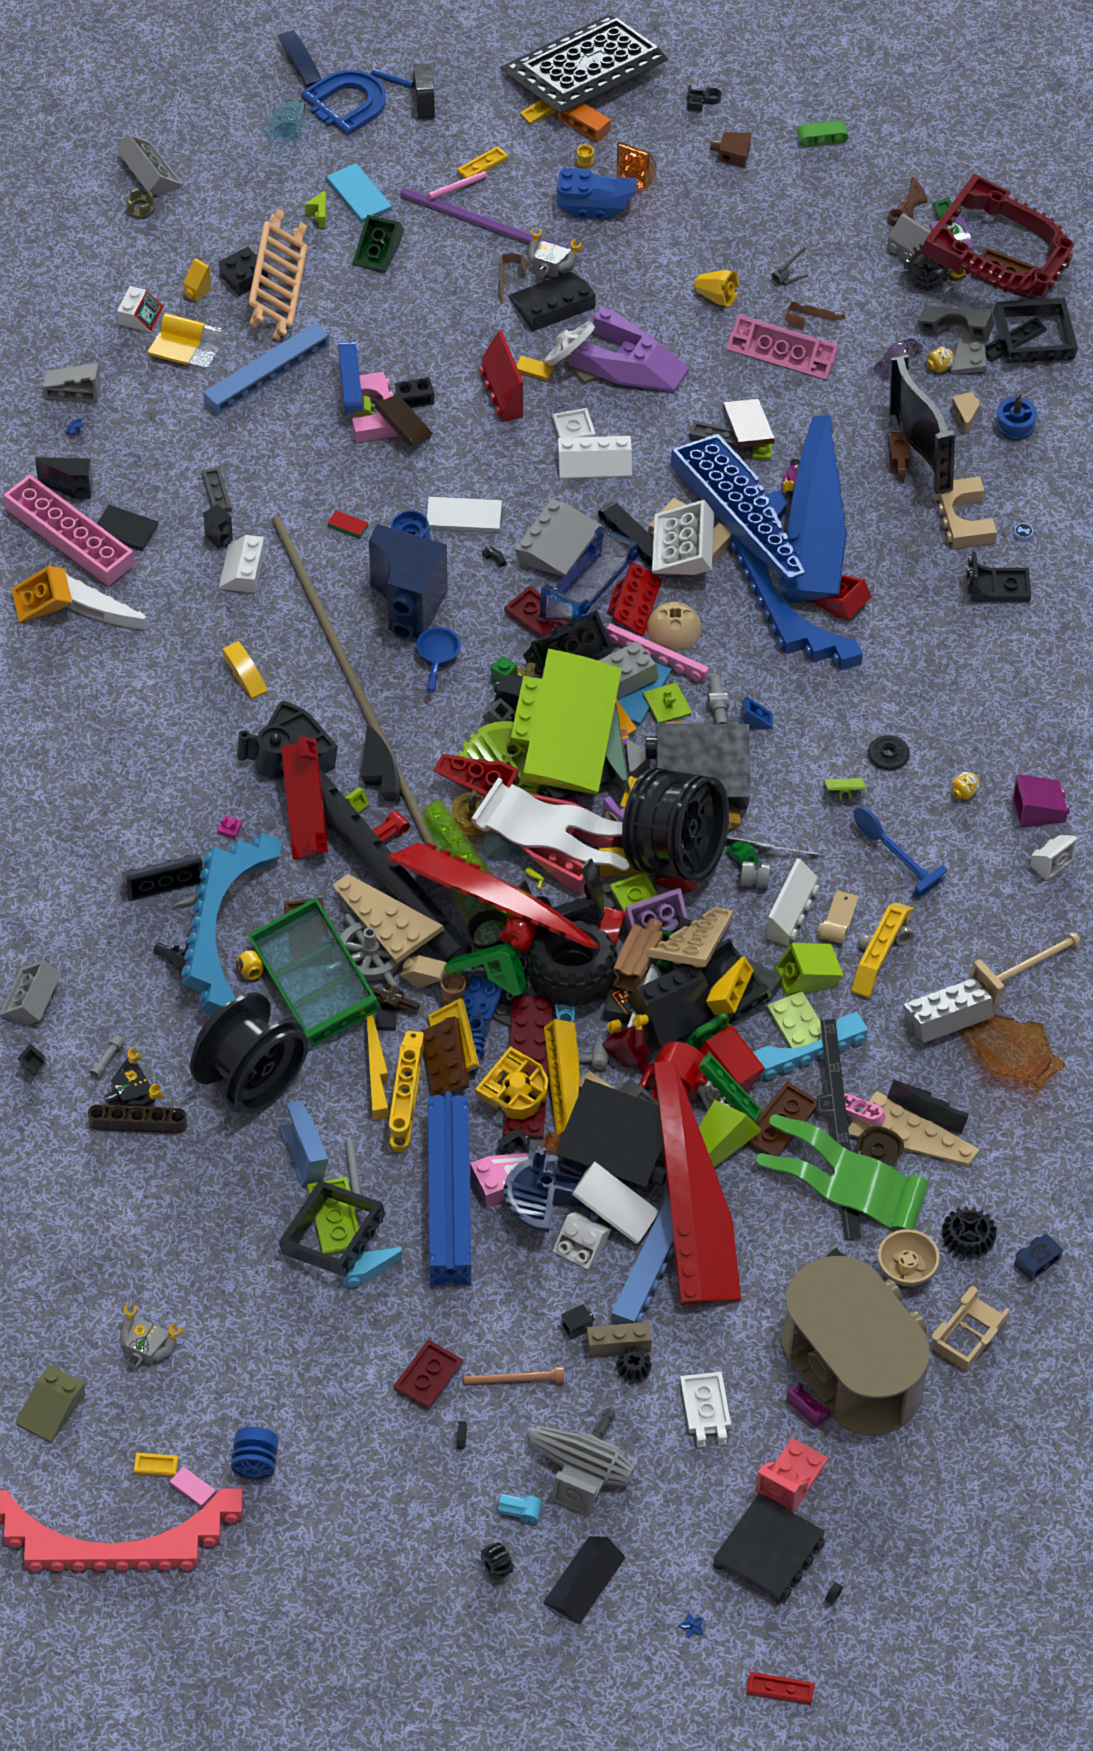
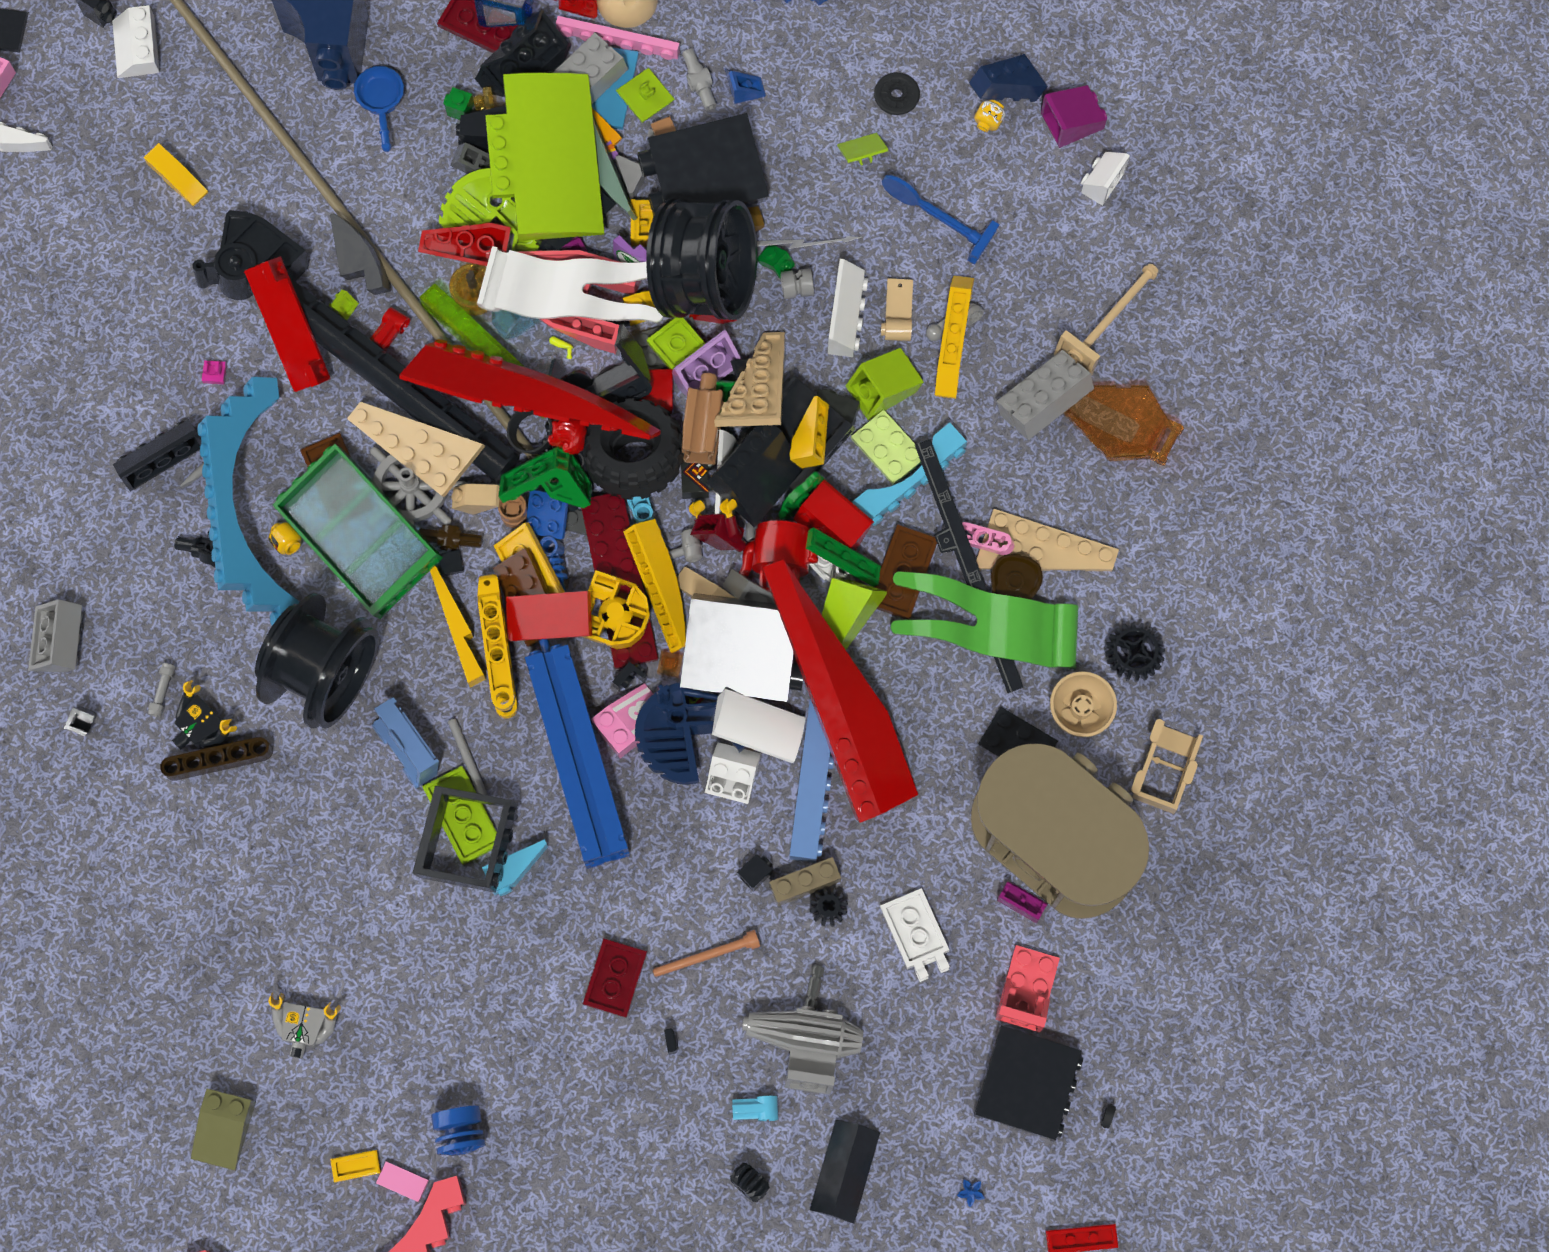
camera: 15 degrees left, 20 degrees up
(458, 1072) = (549, 616): none -> tile
(930, 1108) = (1051, 515): black slope -> none
(989, 758) = (1008, 79): none -> dark blue wedge
(1038, 1256) = (1214, 661): dark blue brick -> none

